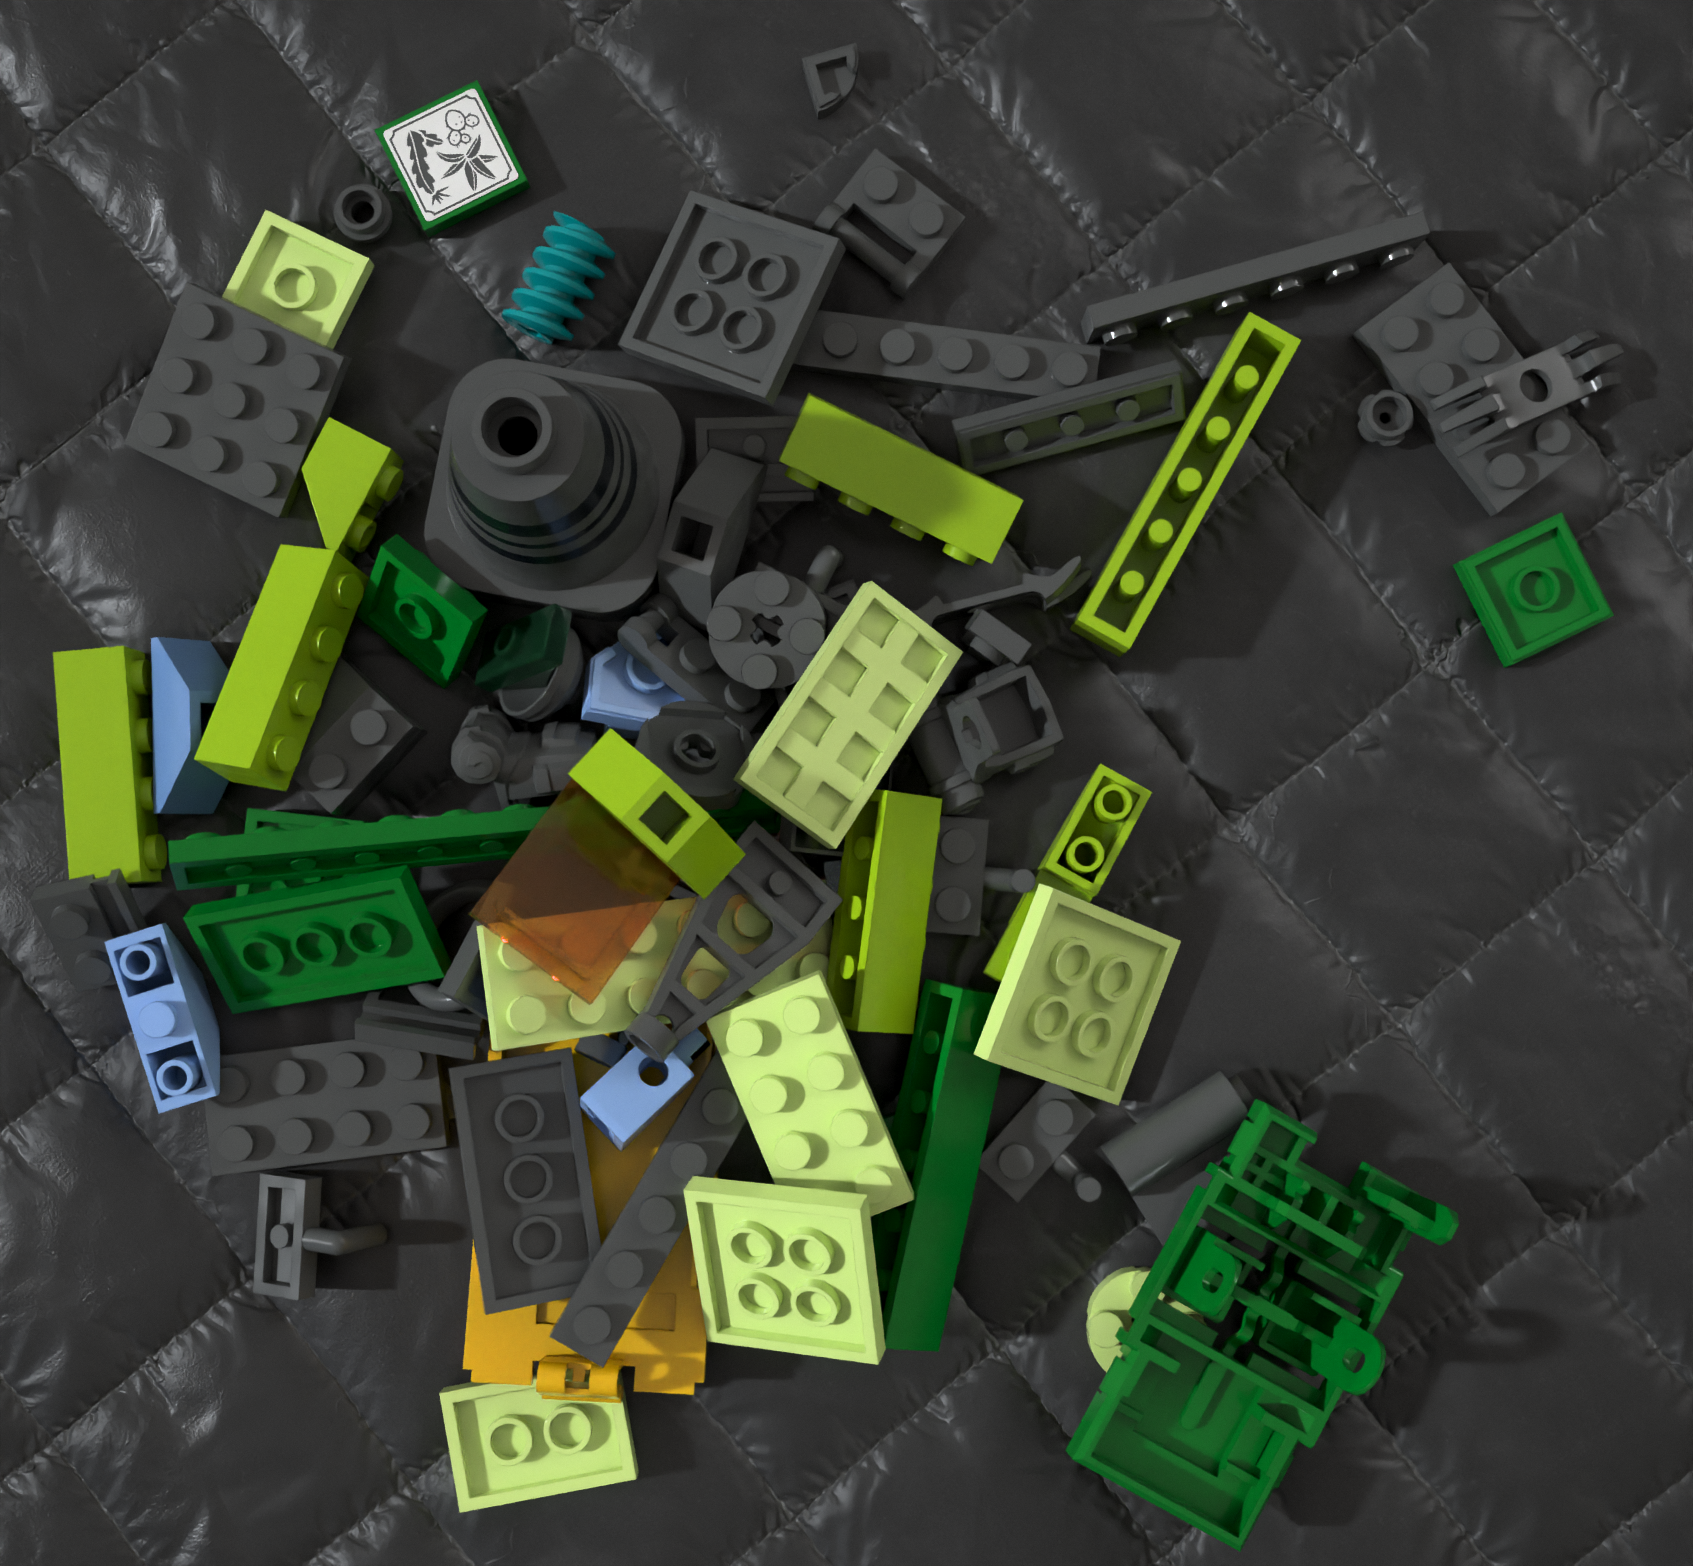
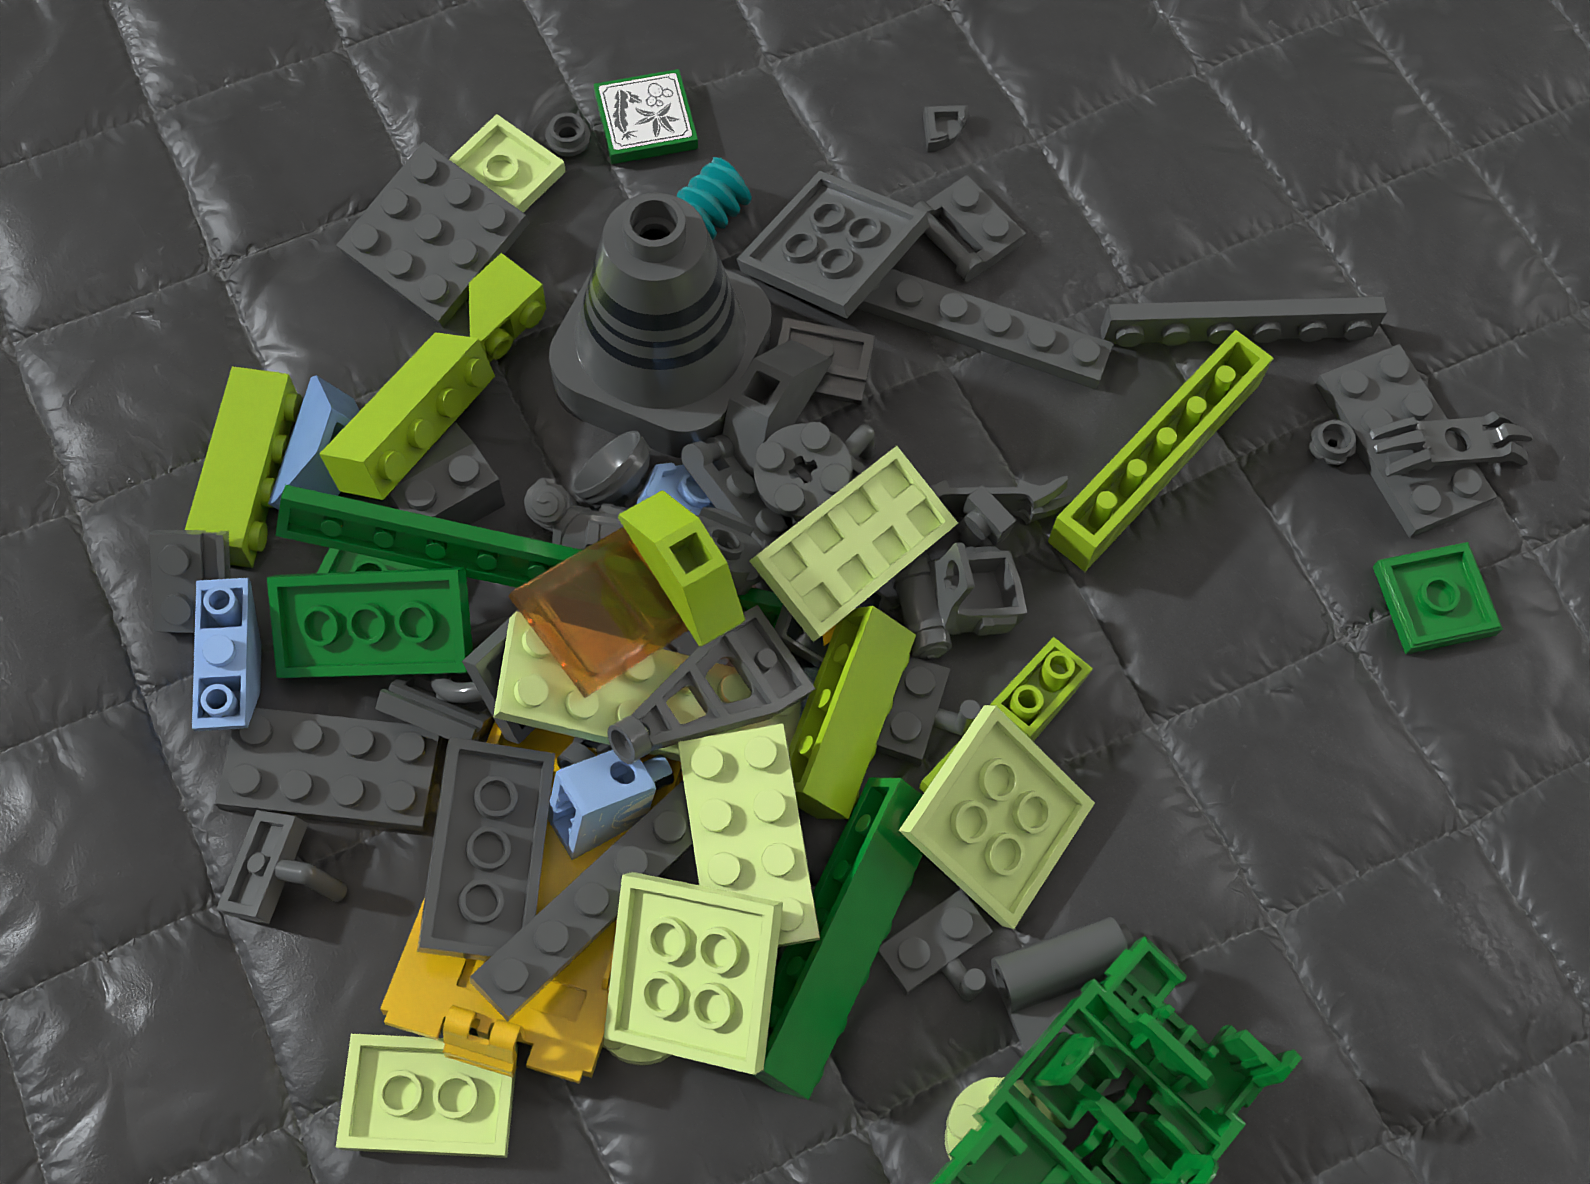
camera: 10 degrees right, 20 degrees down
(421, 611) = (530, 403): green plate -> none
(523, 648) = (603, 446): clear green plate -> none
(899, 479) = (934, 392): lime brick -> none
(1070, 418) = (1077, 386): dark grey tile -> none

